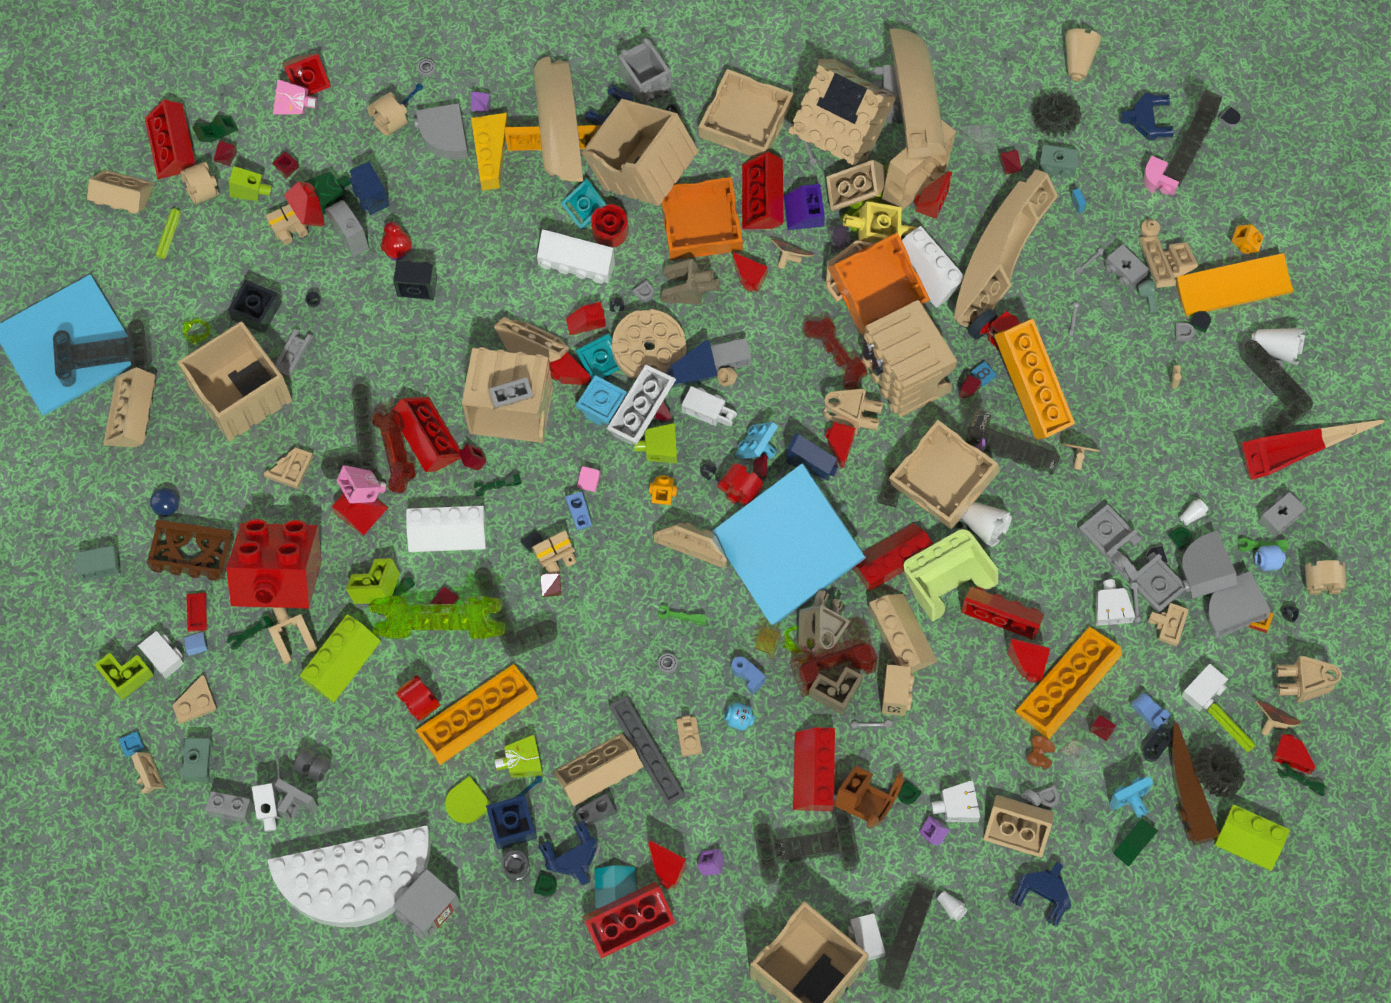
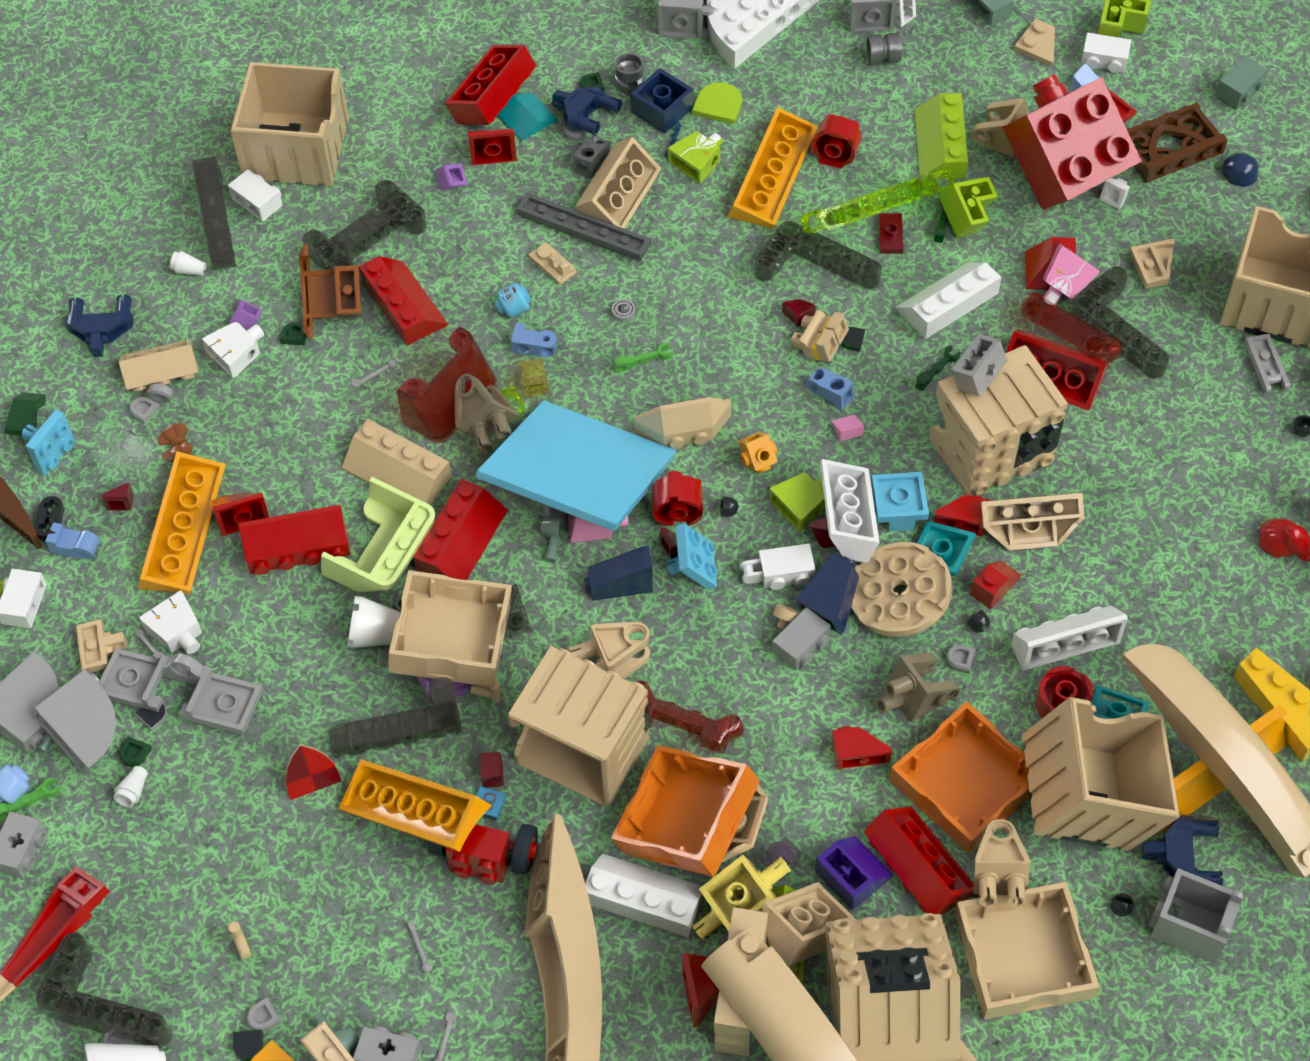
camera: 145 degrees right, 10 degrees down
(415, 280) = (1216, 498): black brick -> none
(727, 154) = (1001, 866): none -> tan piece
(790, 252) = (828, 804): shield -> none
(836, 695) = (427, 361): dark tan brick -> none
(840, 441) = (599, 610): red slope -> none
(896, 690) = (362, 397): tan brick -> none

